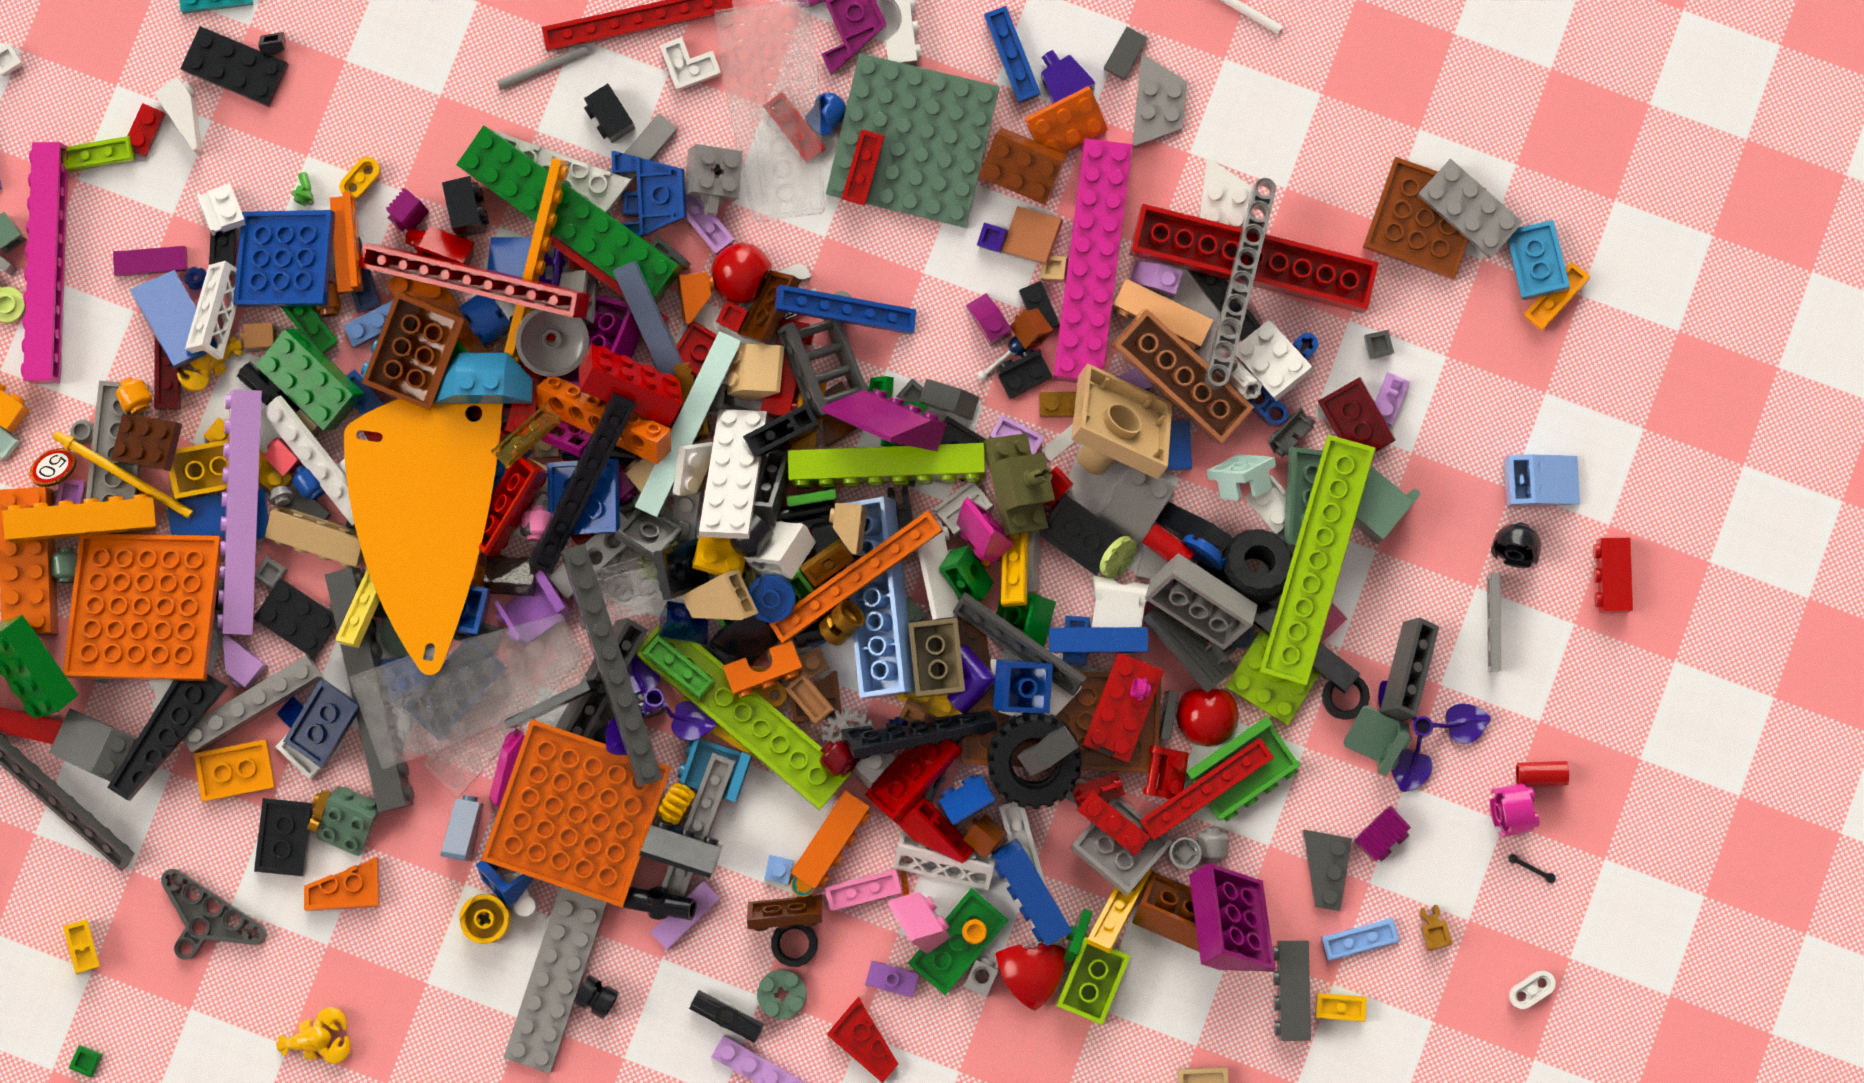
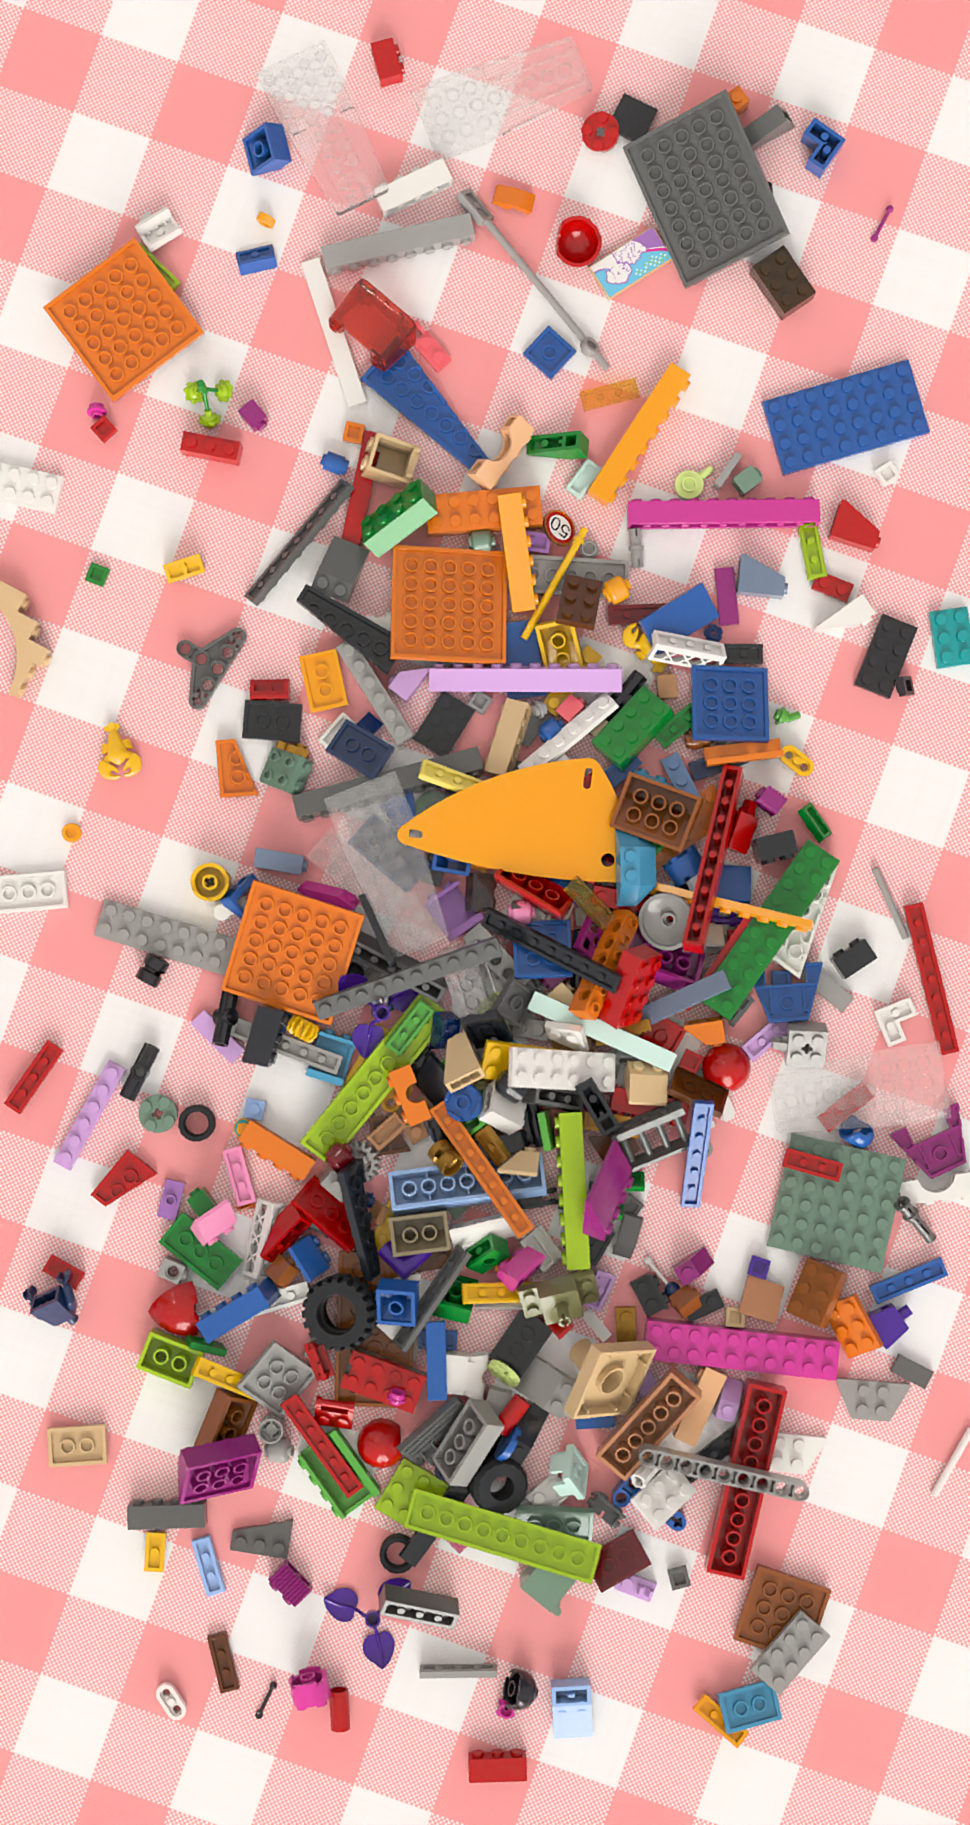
camera: 80 degrees right, 5 degrees up
(72, 101) = (853, 528): none -> red slope
(83, 372) = (636, 547): none -> light grey pin
(130, 219) = (759, 580): none -> sand blue slope
(221, 209) = (768, 651): white plate -> none
(243, 839) = (270, 690): none -> red hinge
(437, 157) = (814, 822): none -> green plate
(784, 912) = (219, 1116): reddish brown plate -> none
(893, 940) = (201, 1201): none -> green brick
(928, 48) = (911, 1214): none -> dark grey pin
(974, 931) = (207, 1264): light orange tile -> none
(1048, 751) = (345, 1329): dark grey slope -> none
(1113, 823) = (292, 1374): red plate -> none
(1168, 715) = (380, 1413): dark grey tile -> none
(1378, 738) = (364, 1581): sand green bracket -> none
(1435, 933) = (214, 1625): pearl gold plate -> none
(1484, 922) = (223, 1662): none -> reddish brown tile
(1546, 569) = (502, 1712): none -> dark pink plate

